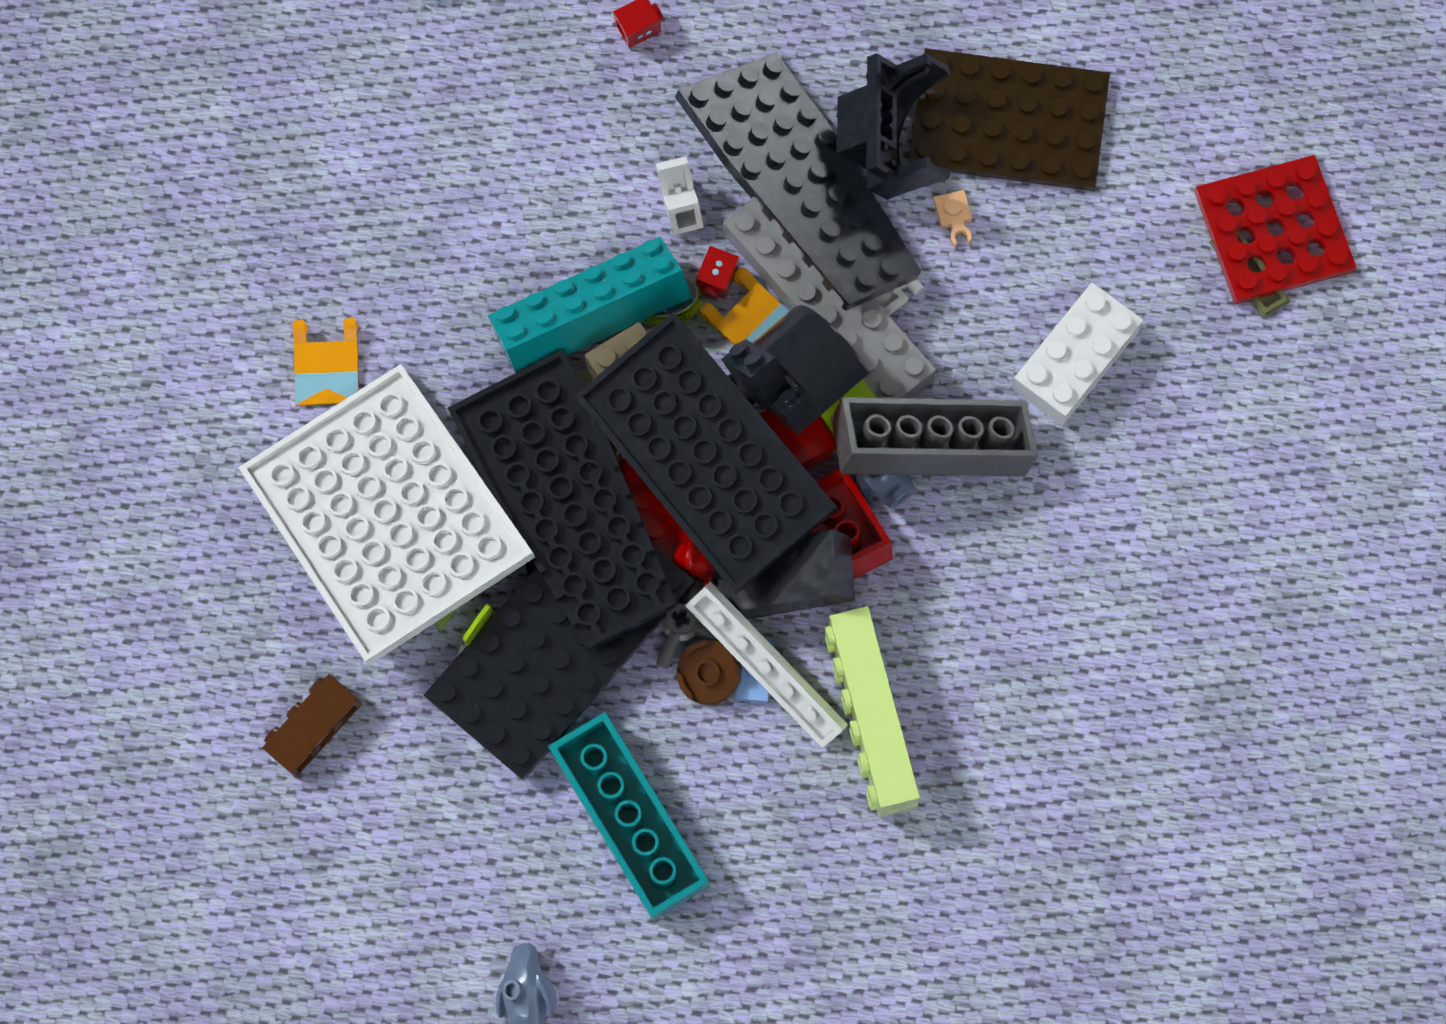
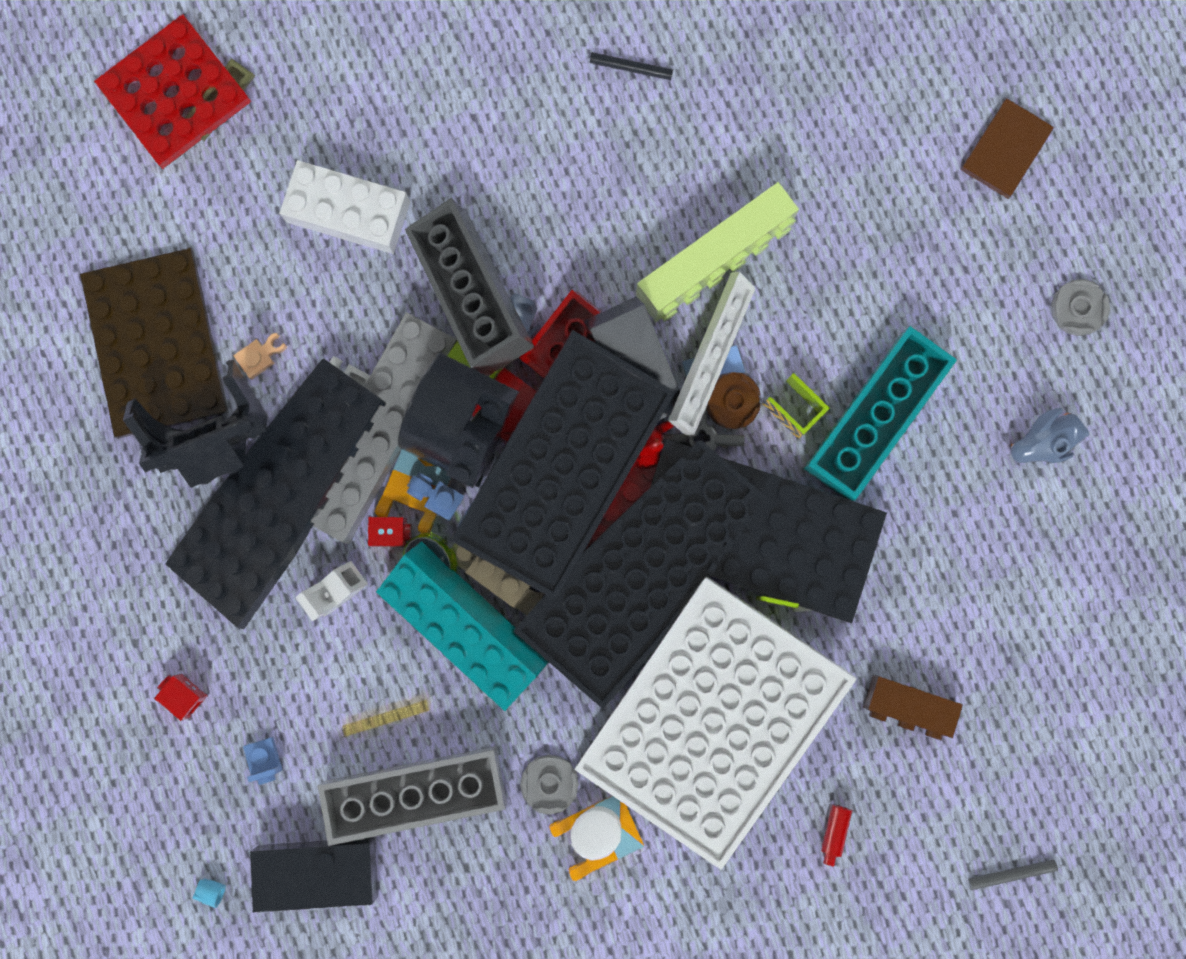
camera: 115 degrees left, 10 degrees up
(97, 760) = (1013, 874): none -> dark grey bar
(221, 597) = (836, 833): none -> red cylinder
(329, 360) = (596, 833): none -> white piece
(400, 345) = (556, 779): none -> light grey tile
(411, 83) = (313, 875): none -> black brick
(444, 201) = (412, 795): none -> light grey brick
(532, 205) = (386, 717): none -> clear yellow bar
(541, 75) = (262, 761): none -> medium blue bracket
(664, 718) = (808, 395): none -> lime piece
(727, 334) = (442, 500): none -> medium blue plate
(1124, 715) = (631, 66): none -> black bar

